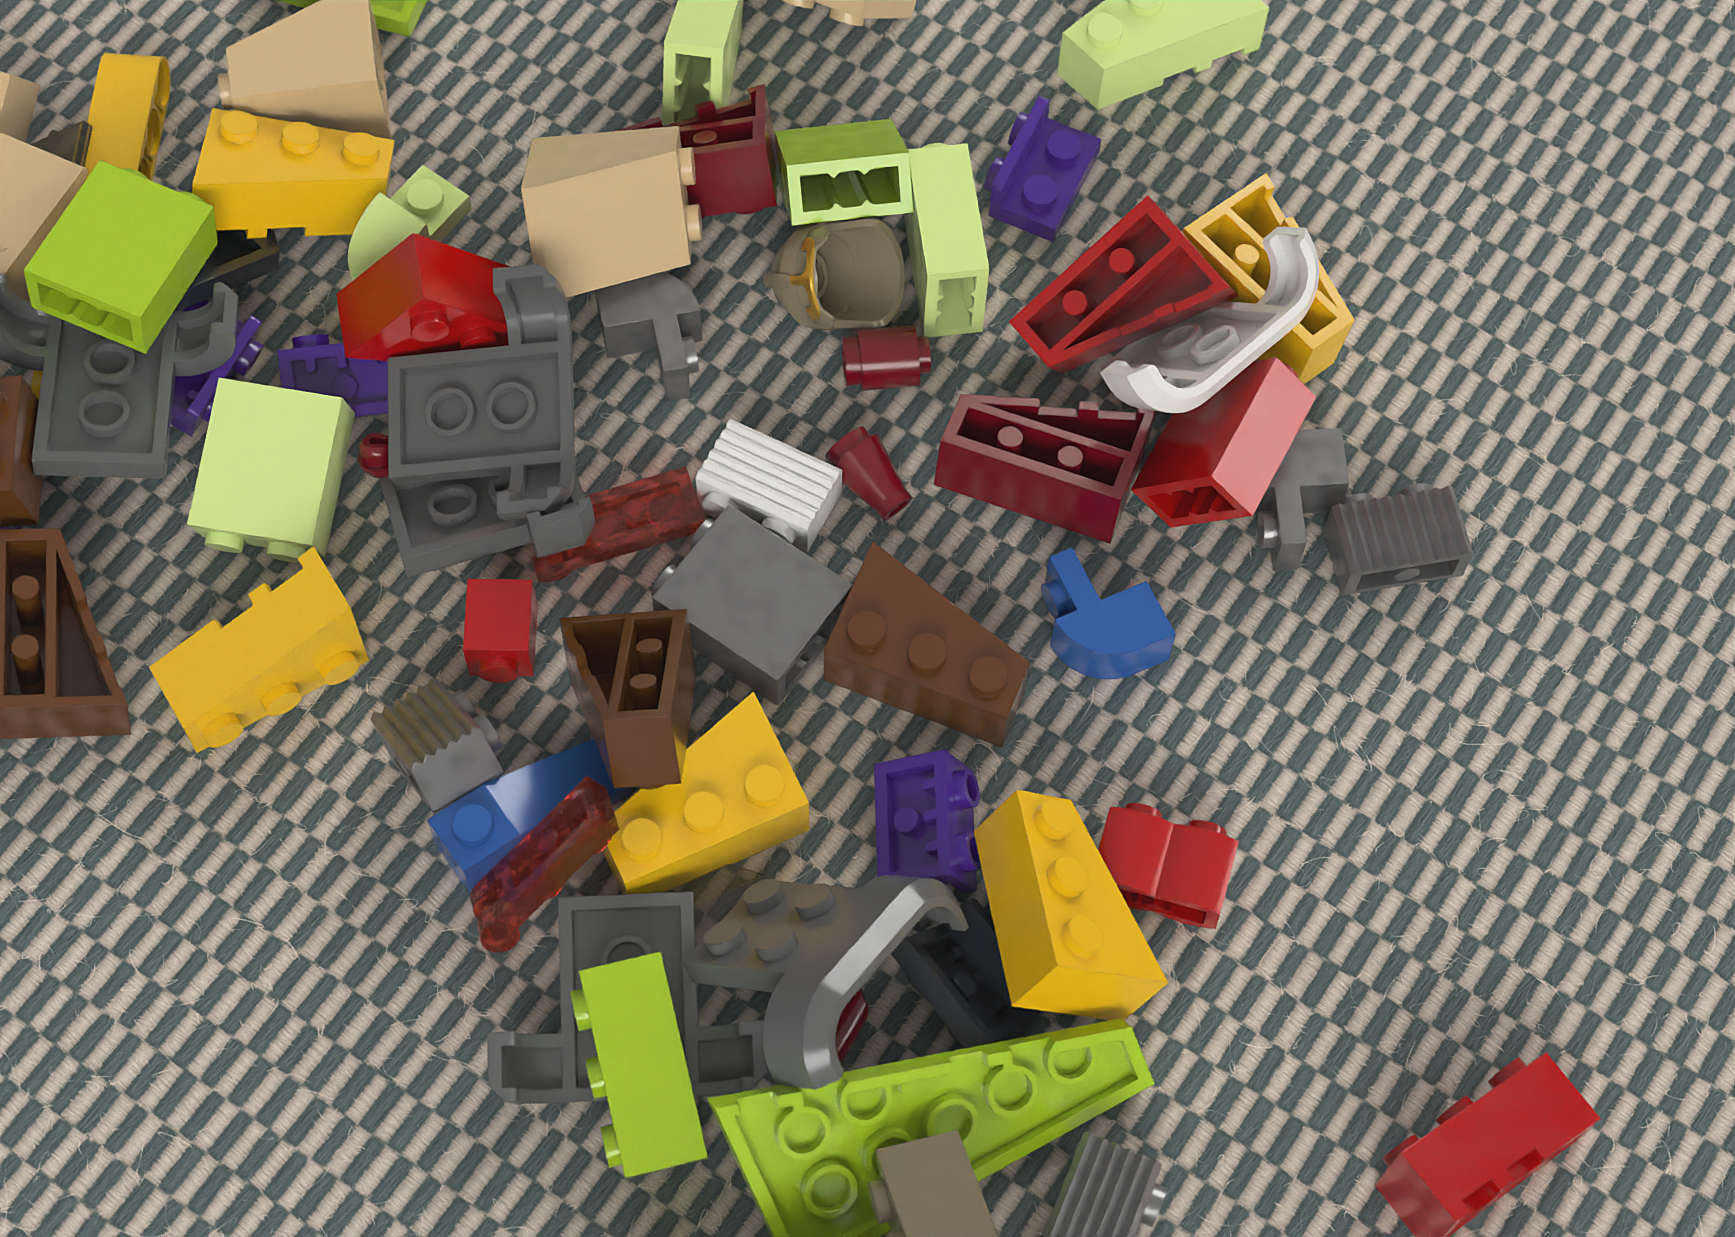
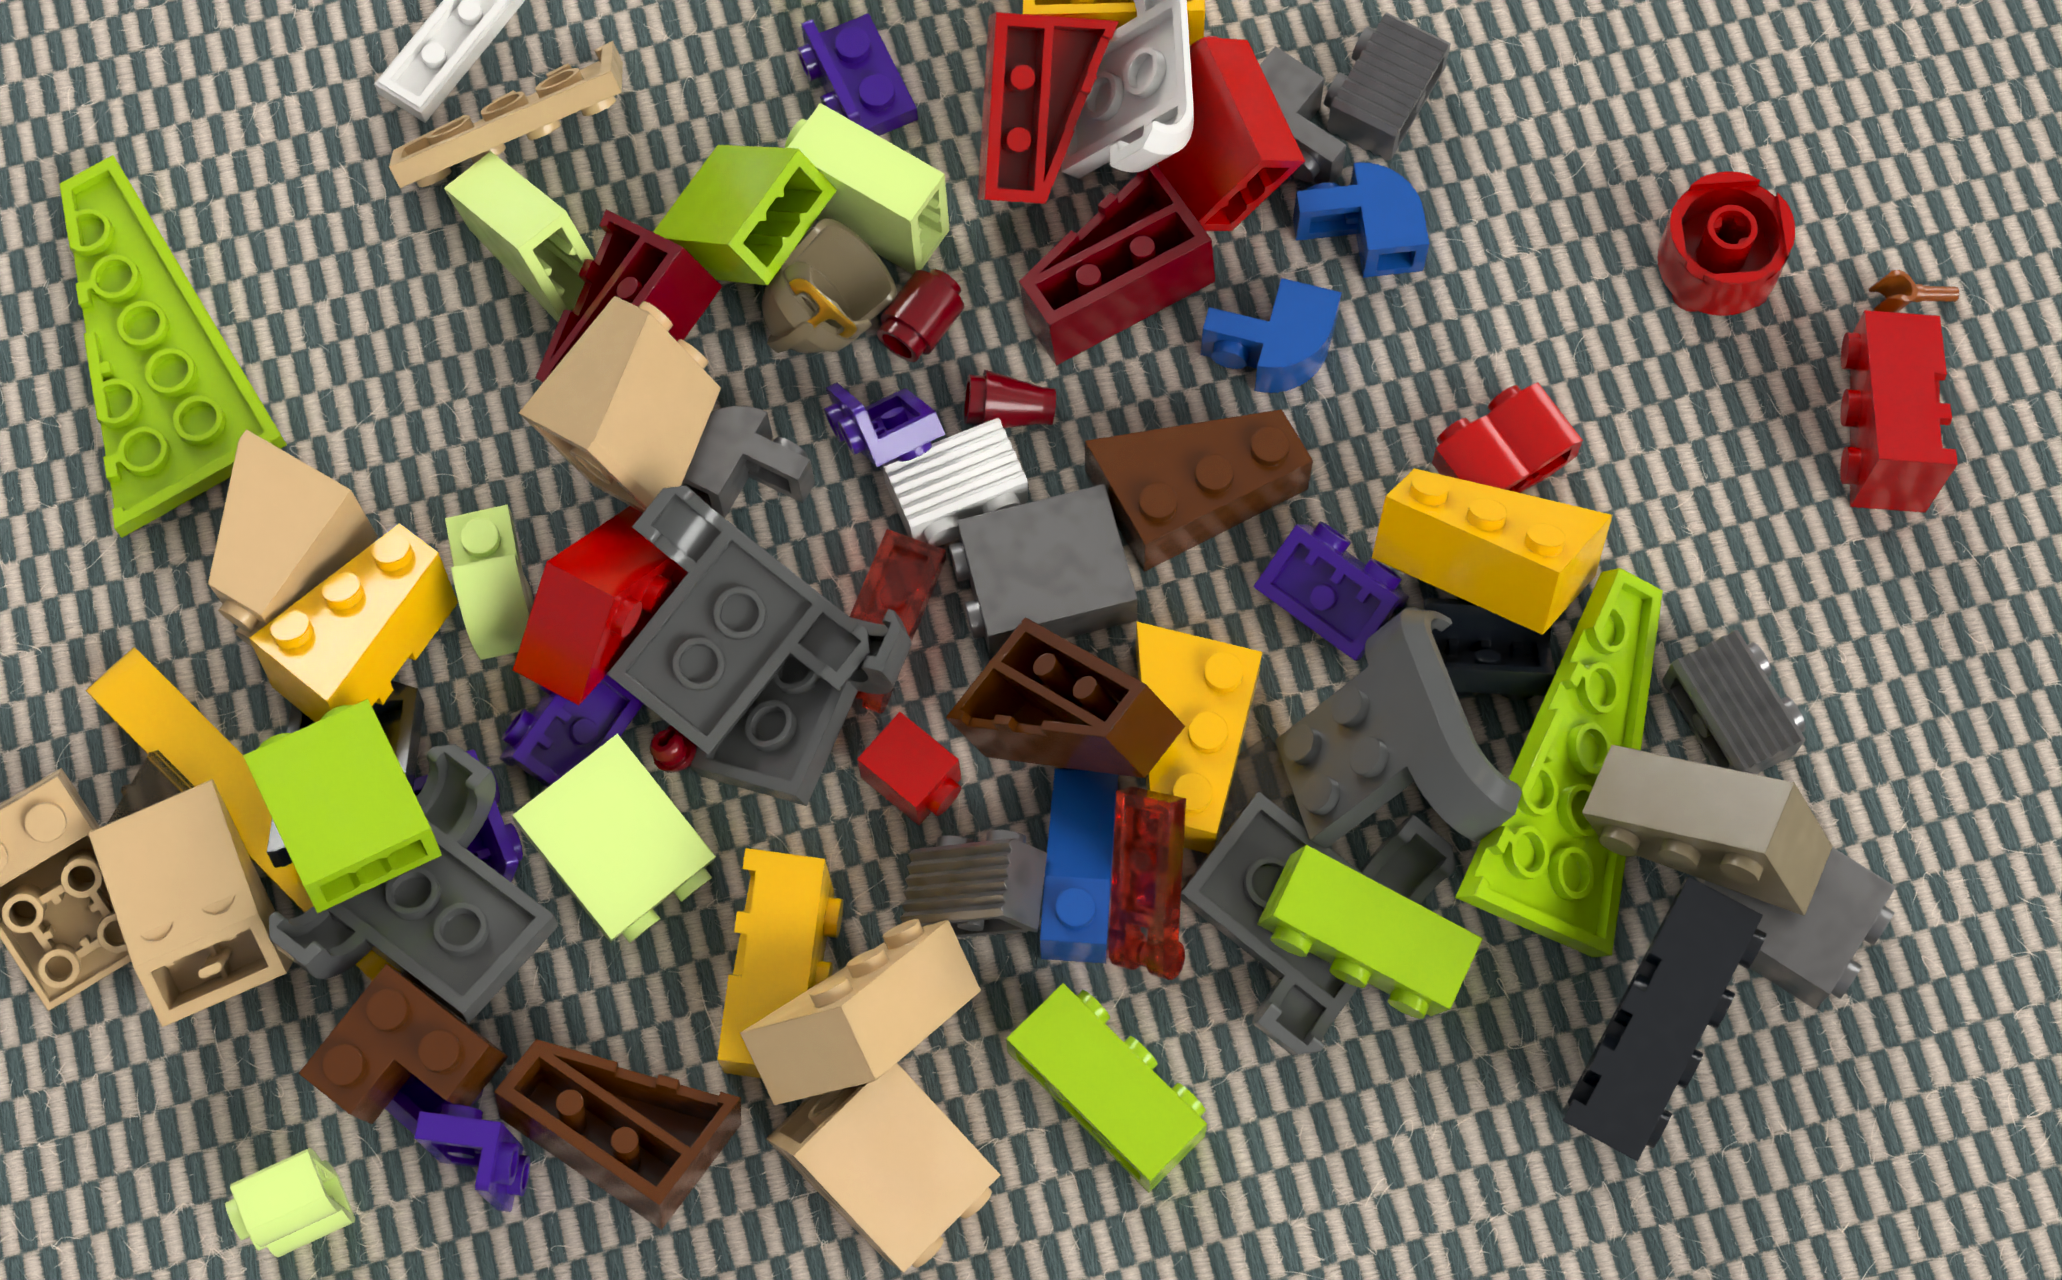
camera: 45 degrees left, 5 degrees up
(166, 851) = (887, 1164): none -> tan slope
(261, 736) = (863, 1015): none -> tan wedge
(360, 970) = (1108, 1085): none -> lime brick
(757, 400) = (886, 430): none -> dark purple bracket
(1278, 614) = (1375, 207): none -> blue brick
(1496, 933) = (1725, 244): none -> red brick
(1607, 1078) = (1901, 290): none -> dark orange hand

